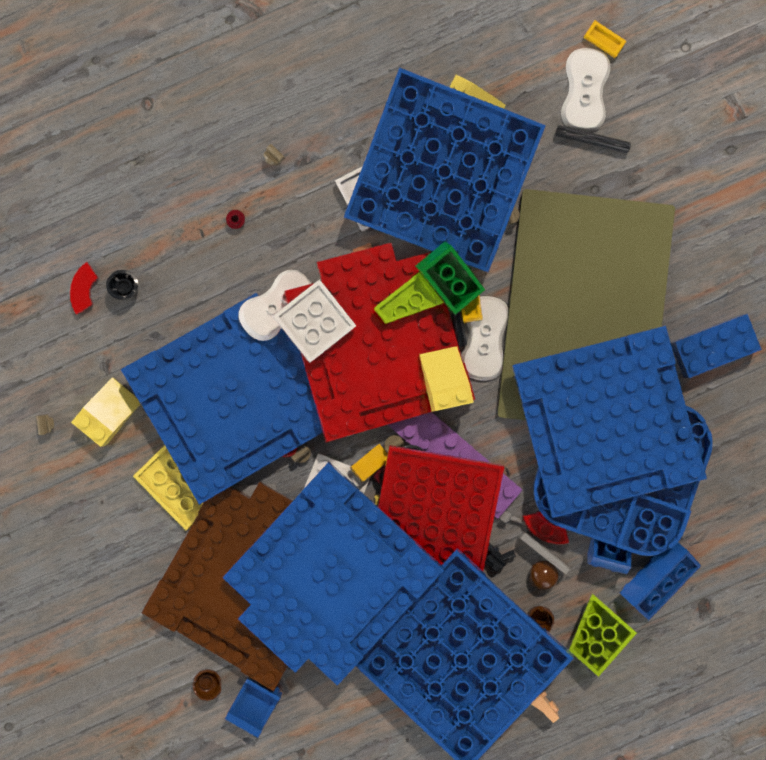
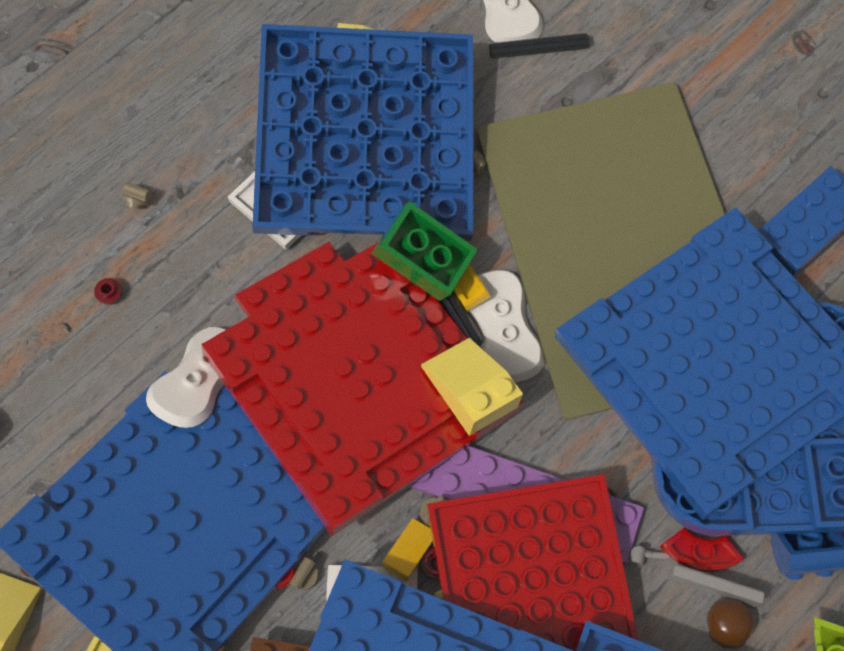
camera: 20 degrees left, 20 degrees down
(314, 321) = (256, 365): white plate -> none
(408, 299) = (378, 298): lime wing -> none
(496, 560) = (652, 626): black piece -> none

